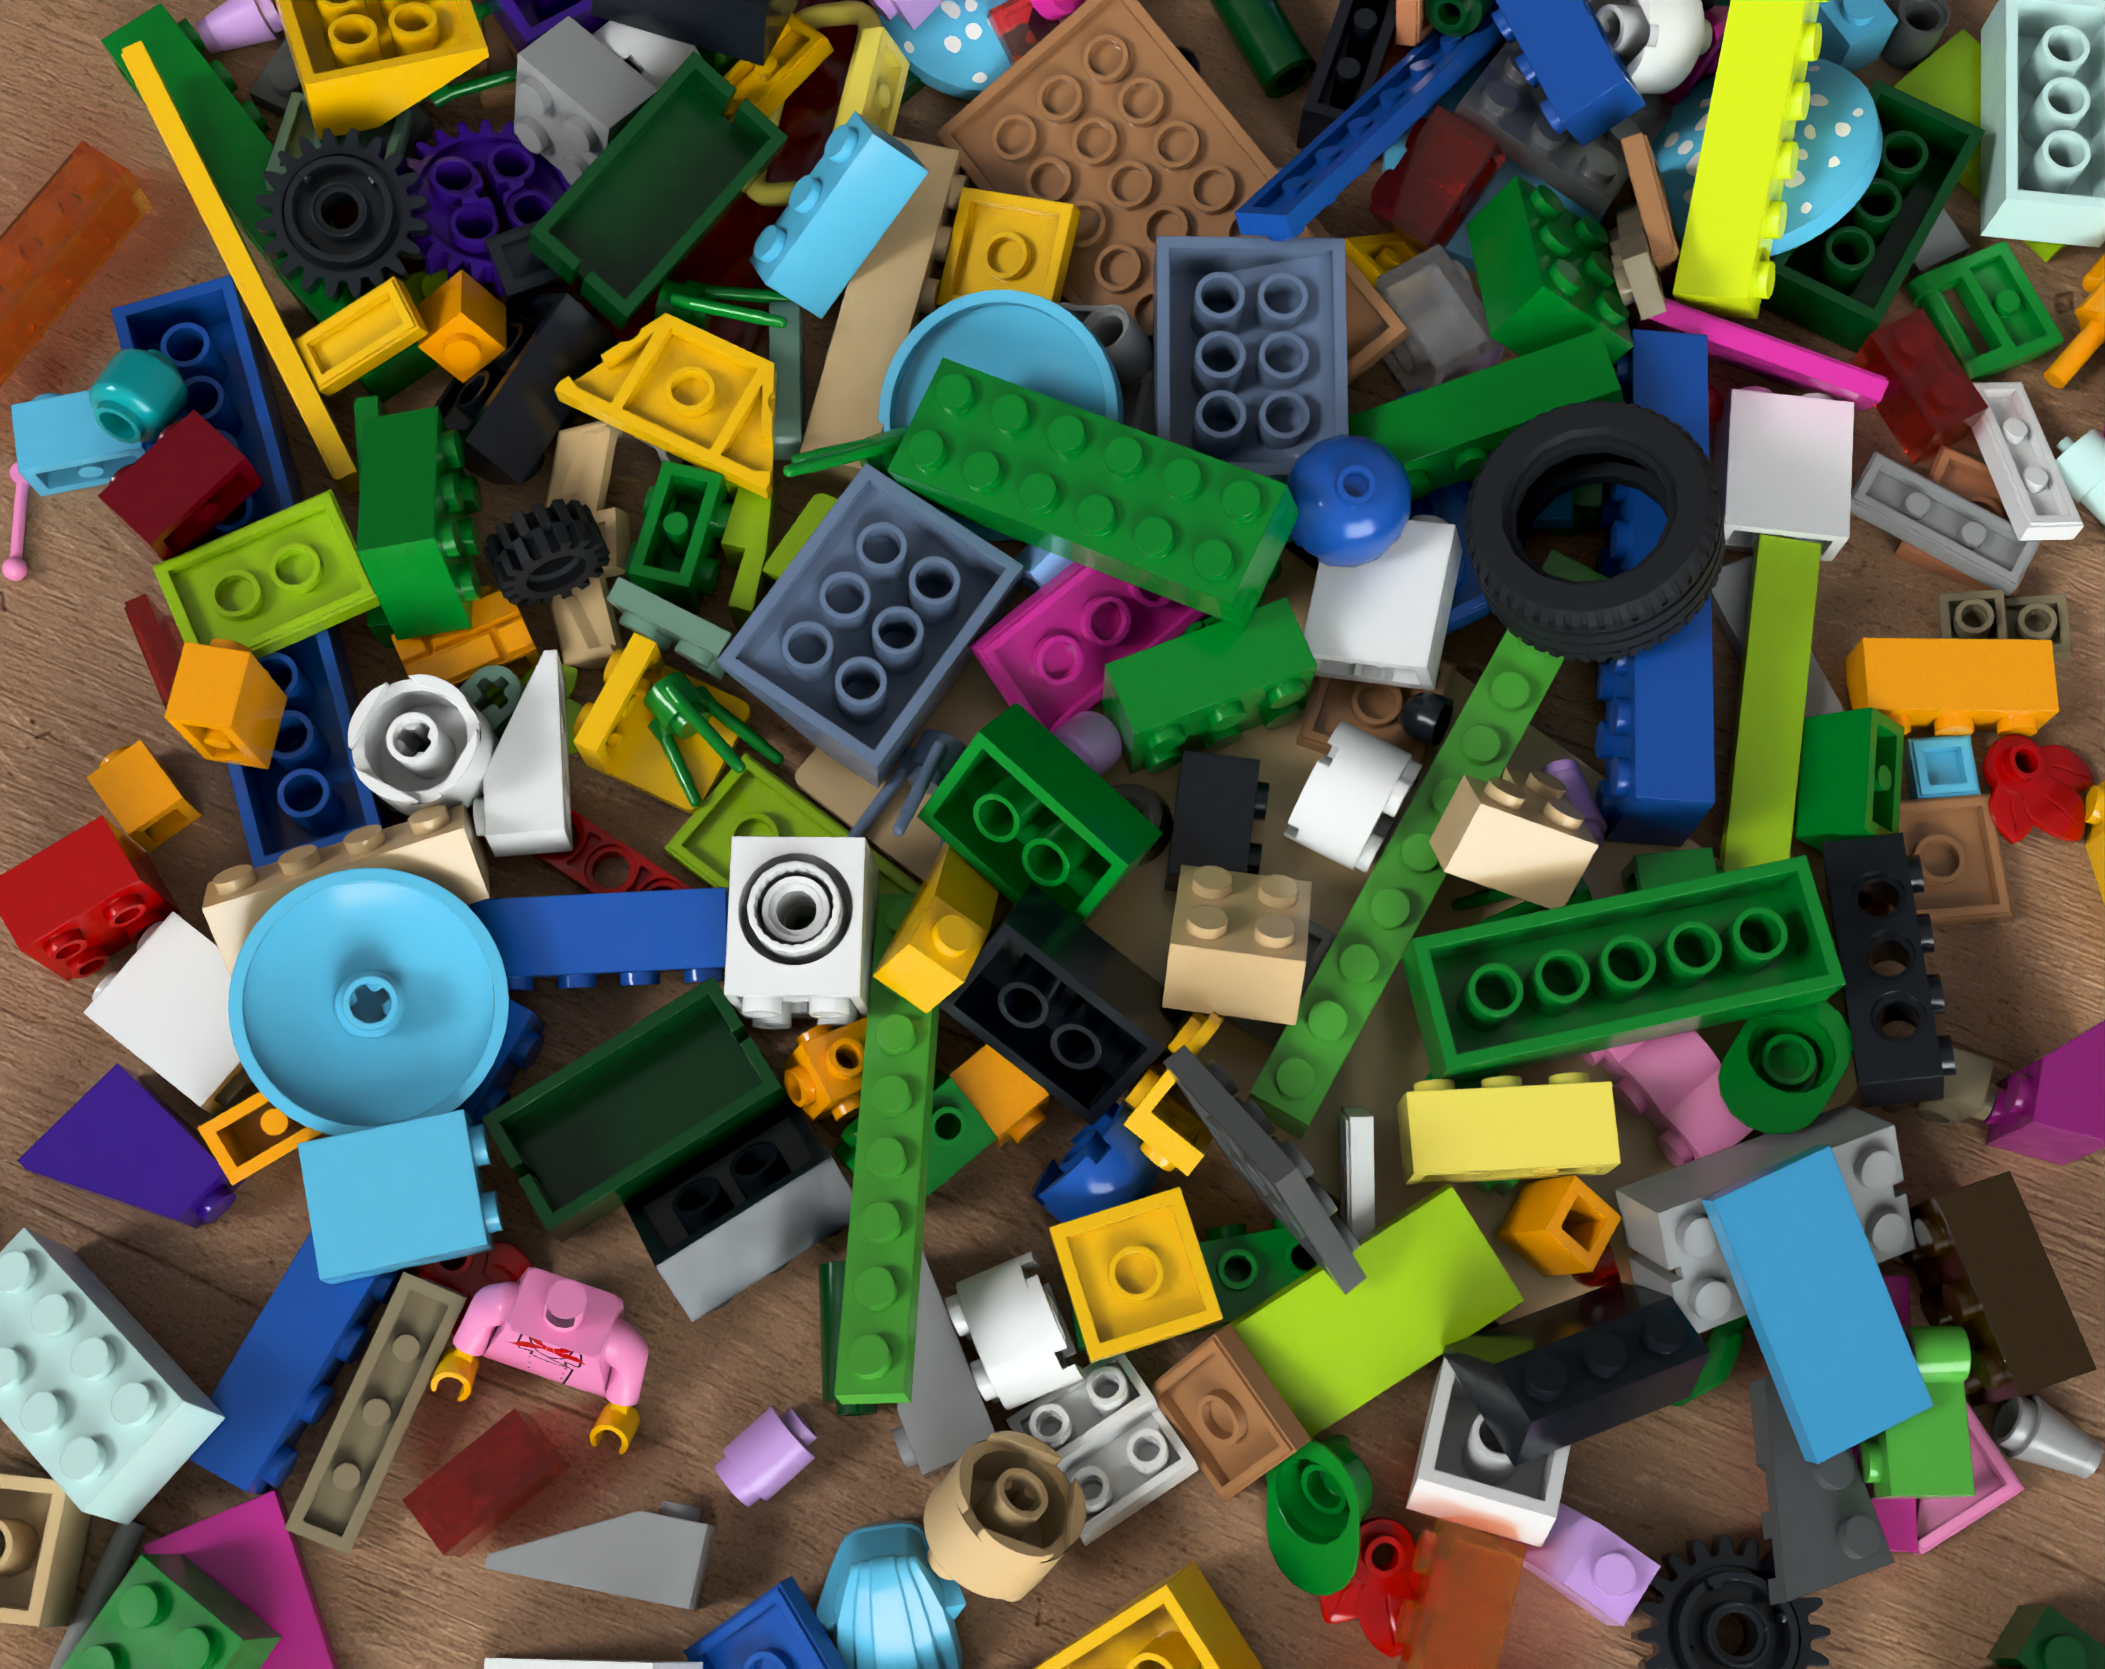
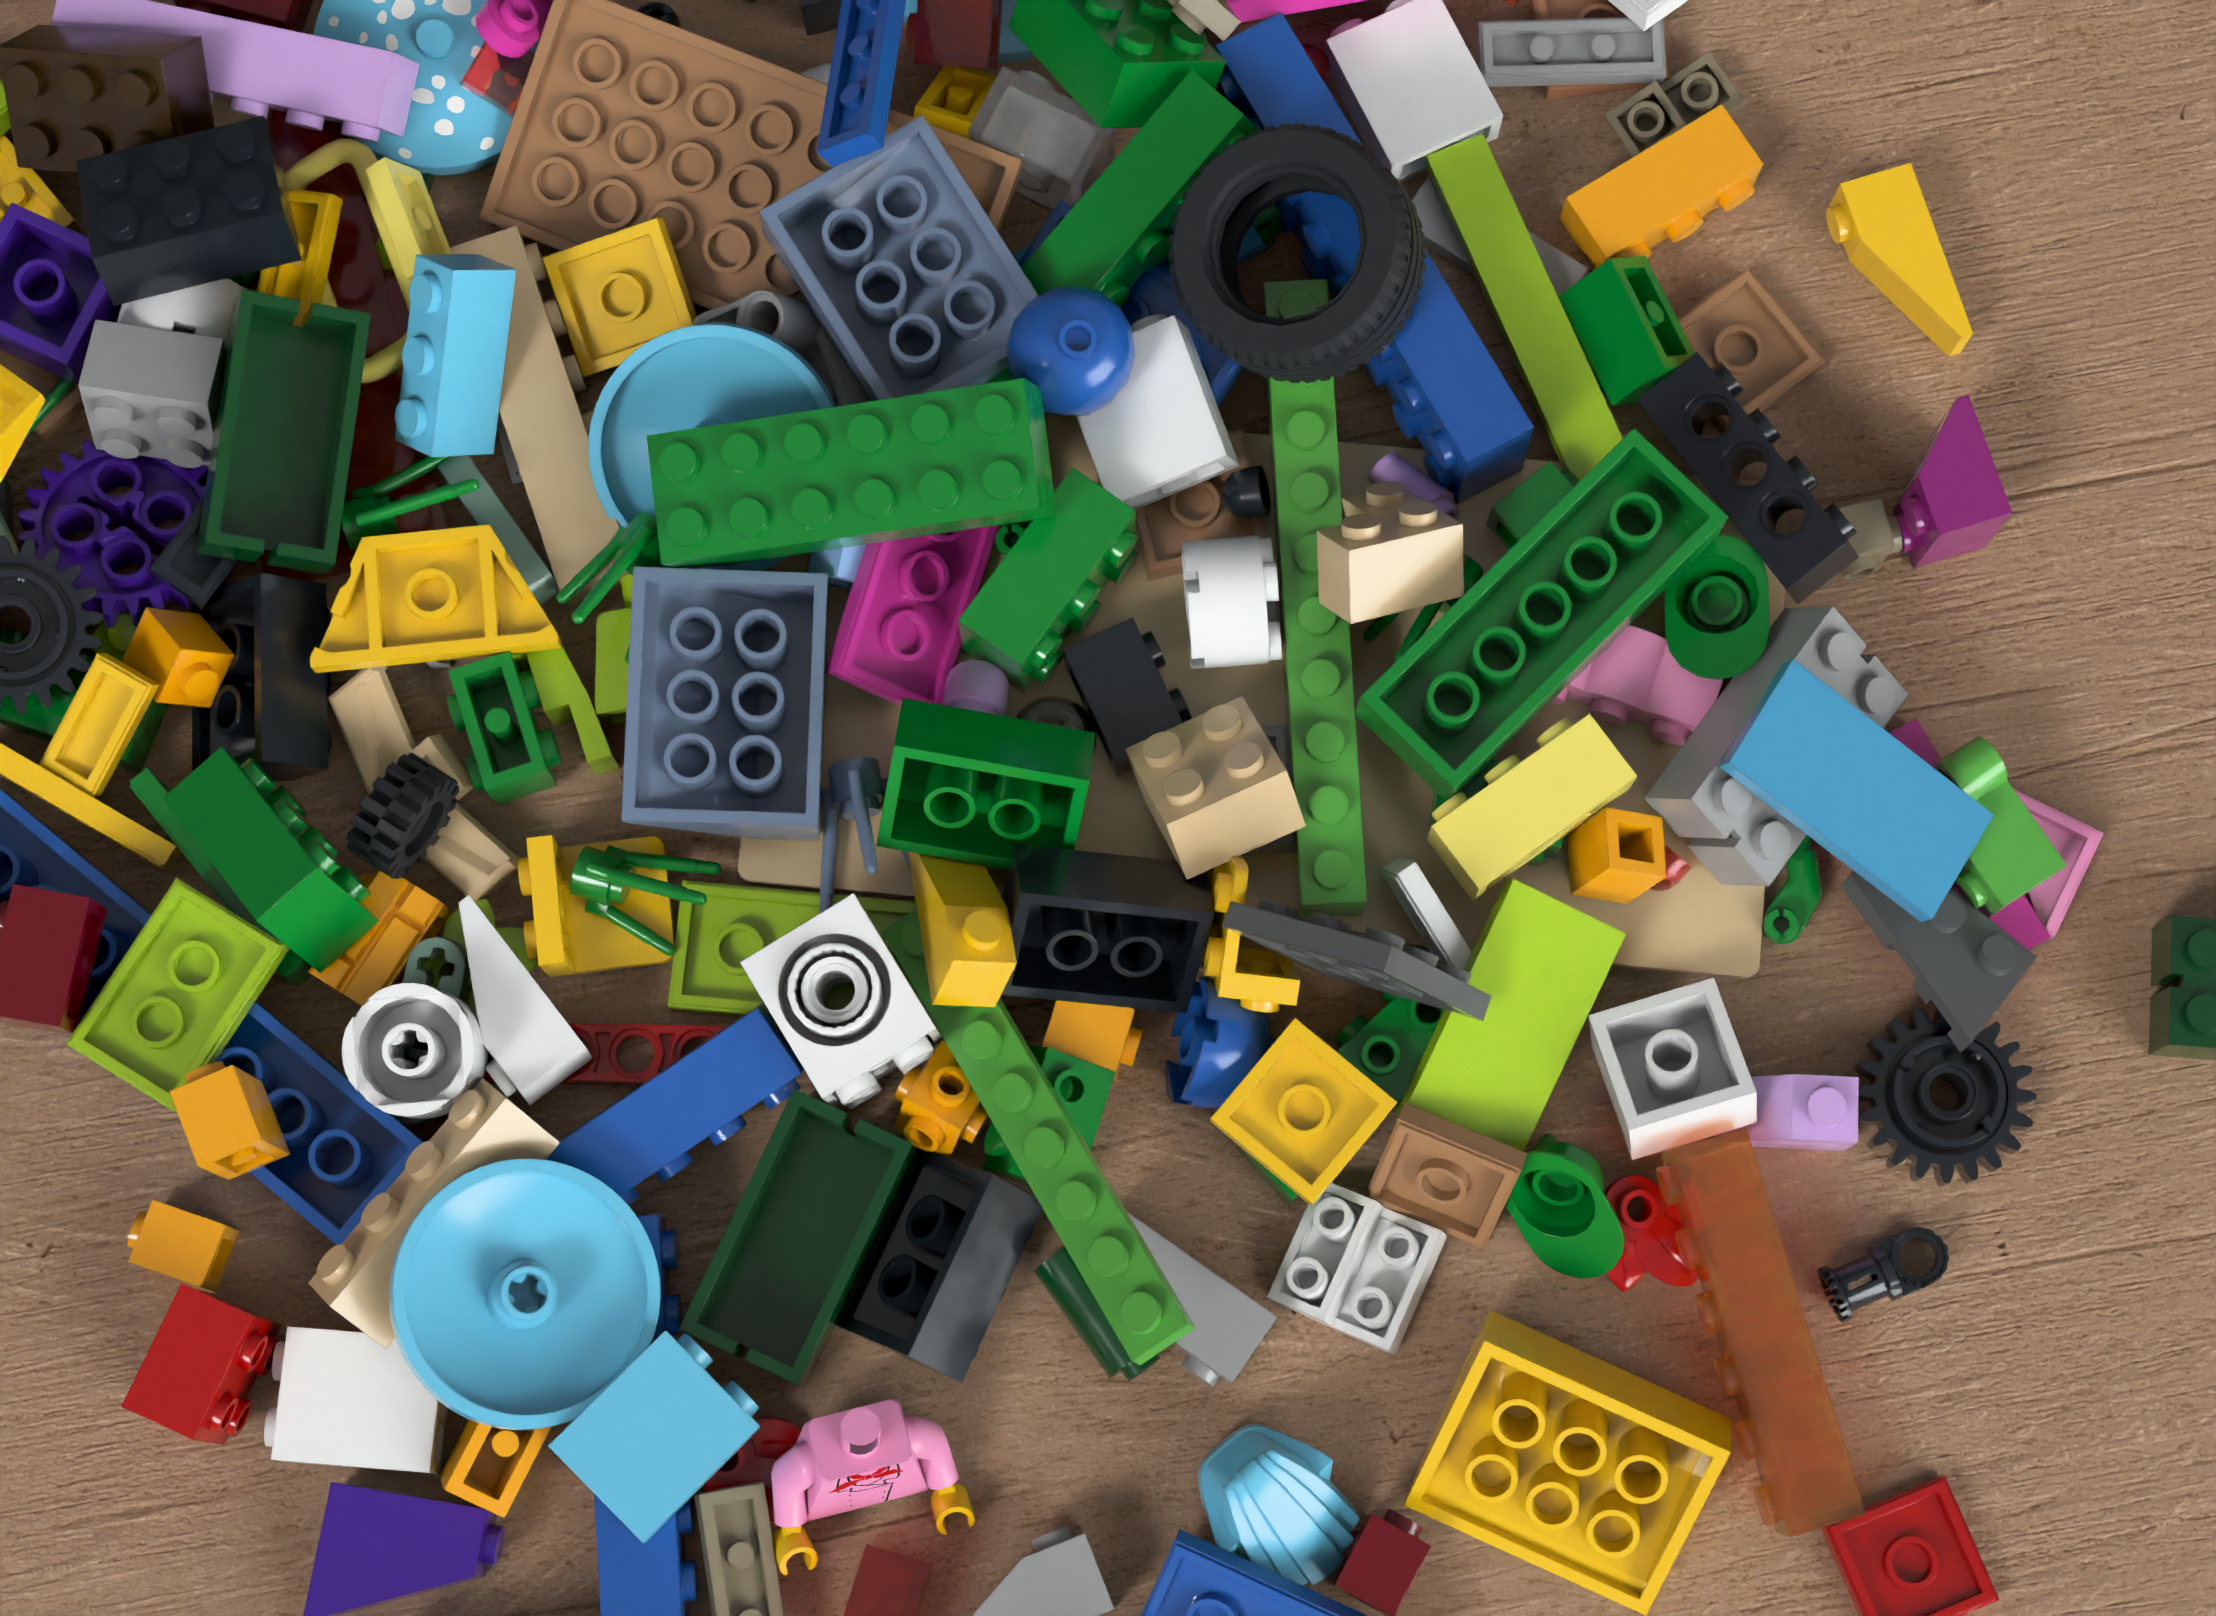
camera: 30 degrees left, 5 degrees up
(155, 642) = (118, 1119): clear red tile -> none
(669, 624) = (537, 814): sand green plate -> none
(767, 1455) = (1092, 1449): lavender brick -> none
(1003, 1516) = (1319, 1372): tan brick -> none
(1015, 1332) = (1233, 1220): white brick -> none
(1579, 1367) = (1701, 960): black slope -> none
(1940, 767) = (1693, 268): medium azure tile -> none
(1993, 1278) = (1988, 686): dark brown brick -> none
(2039, 793) = (1789, 241): red plate -> none
(2042, 1436) = (2094, 781): light grey cone -> none

